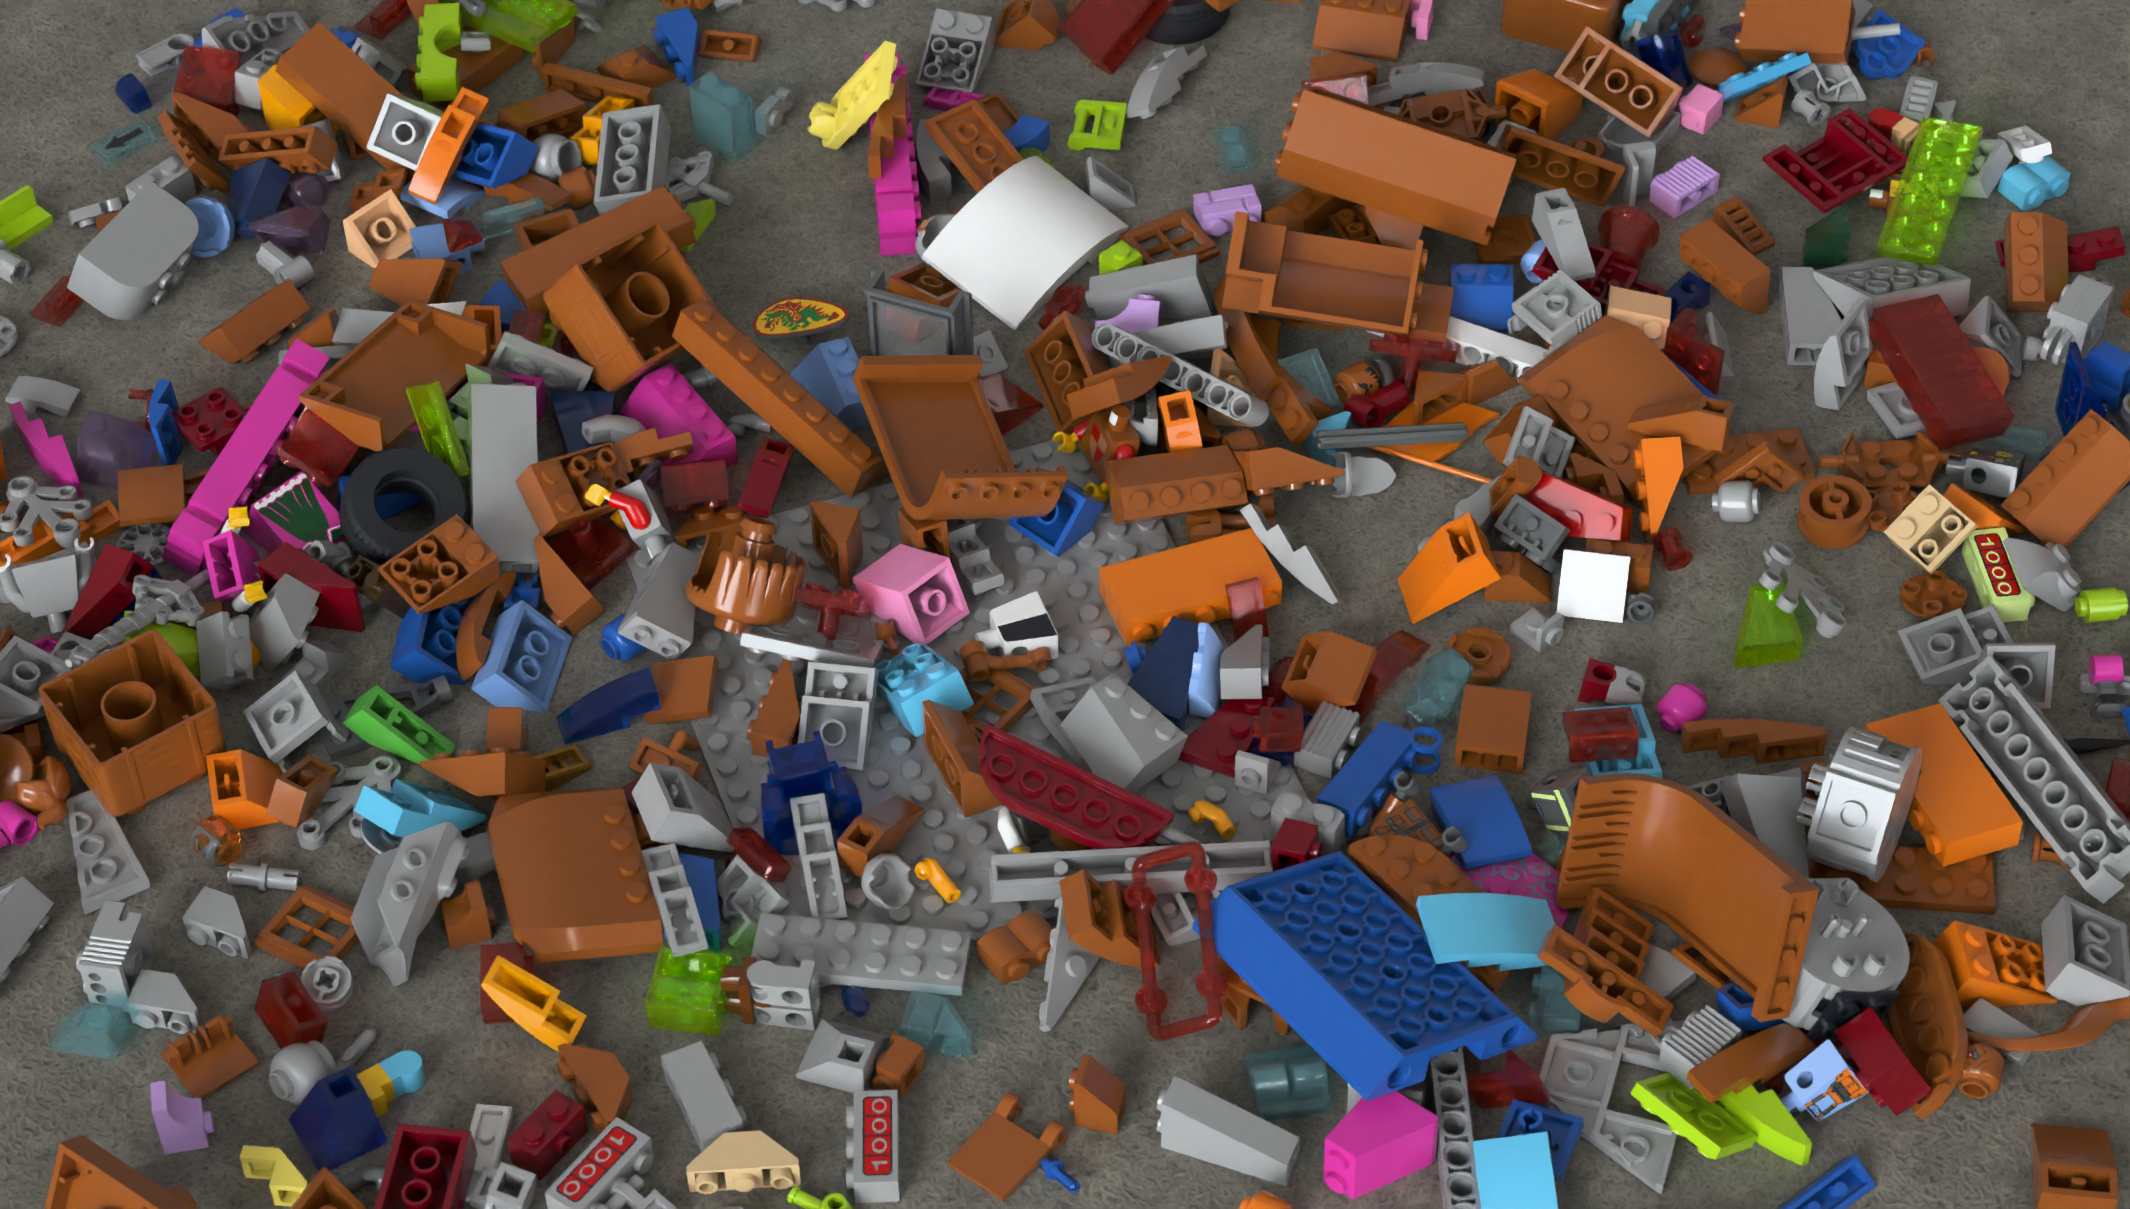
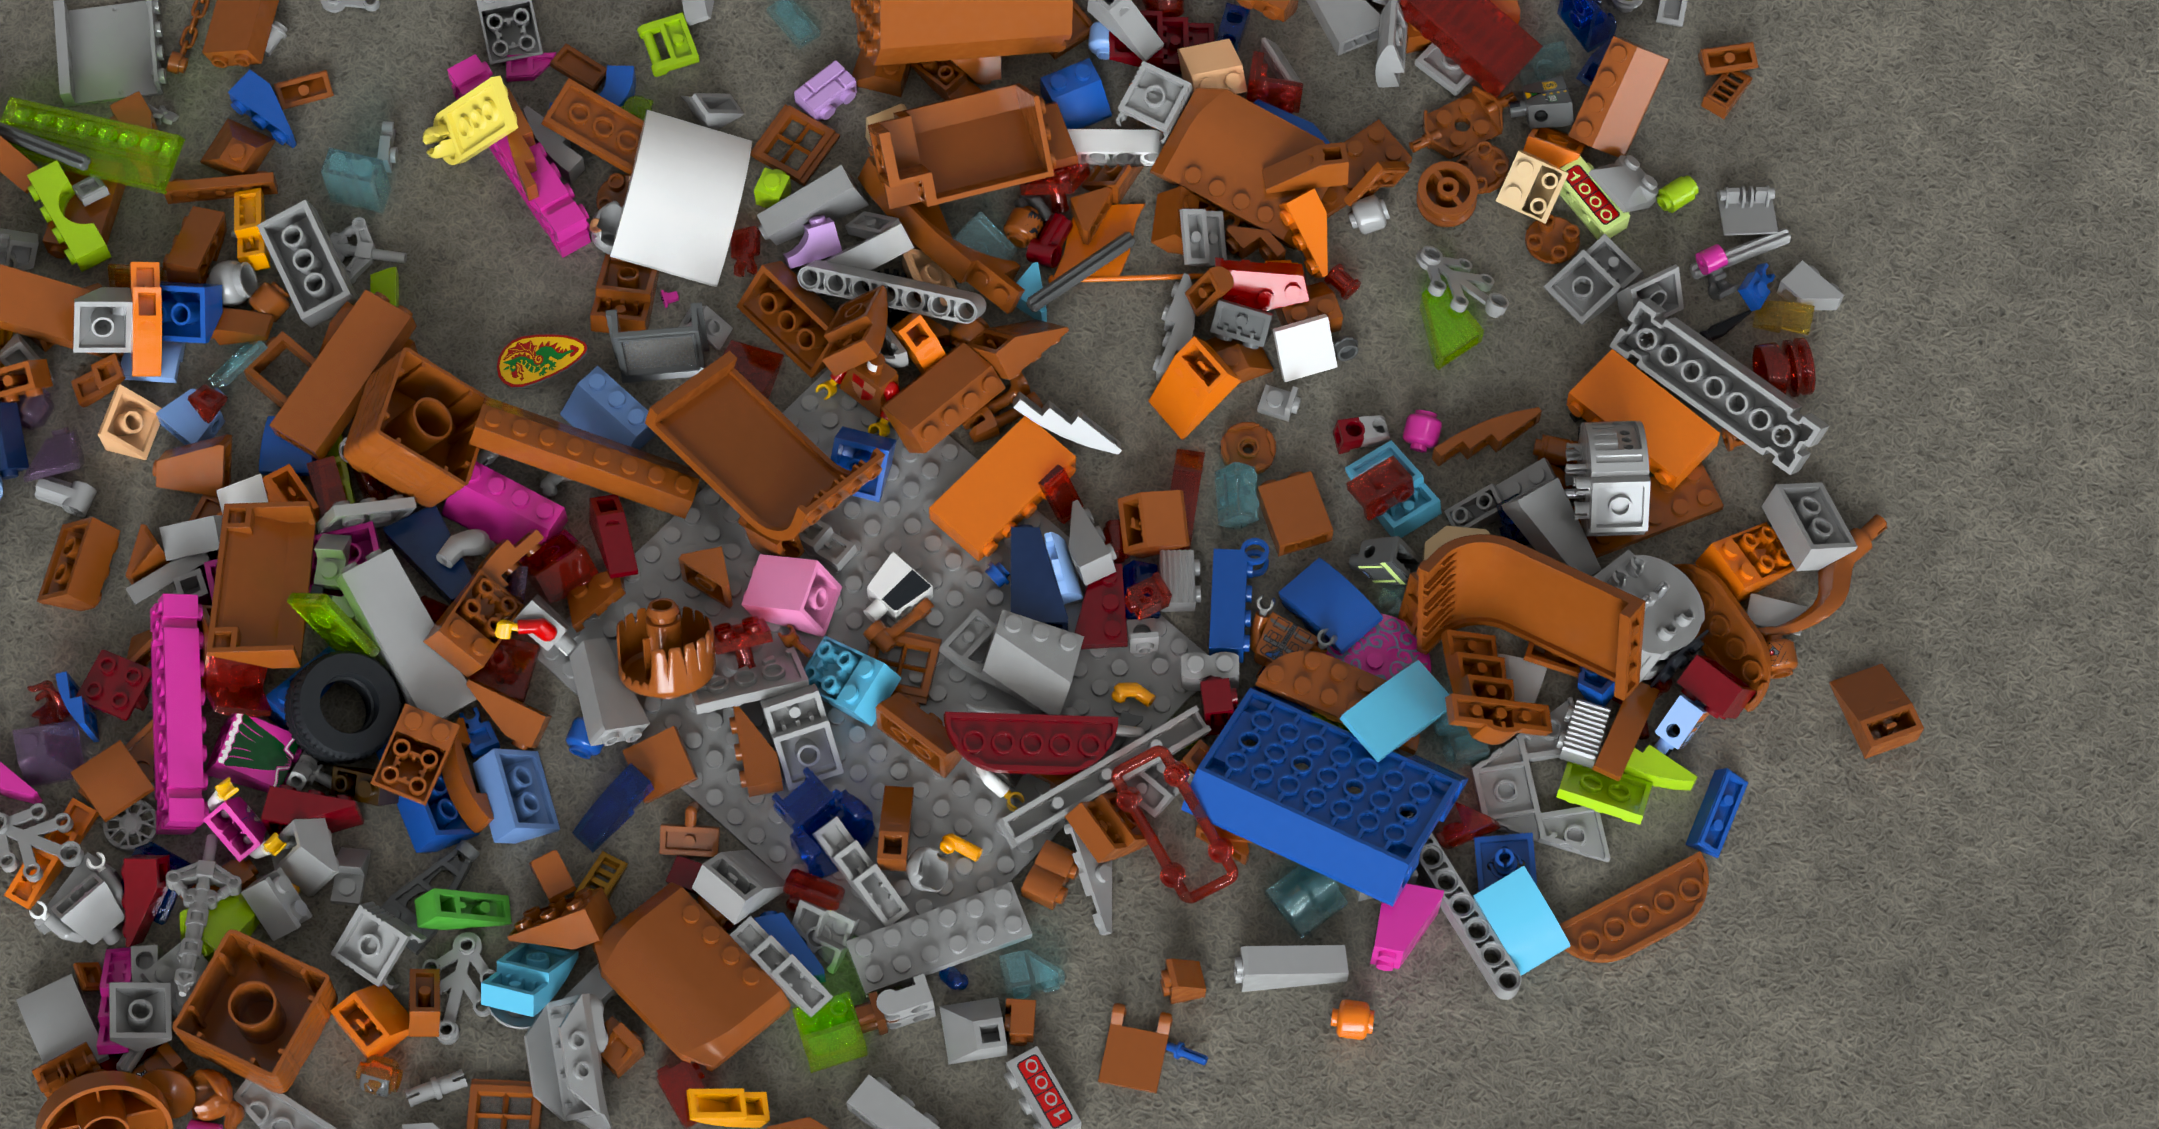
camera: 30 degrees left, 20 degrees up
(1361, 475) = (1075, 315): light grey piece -> none

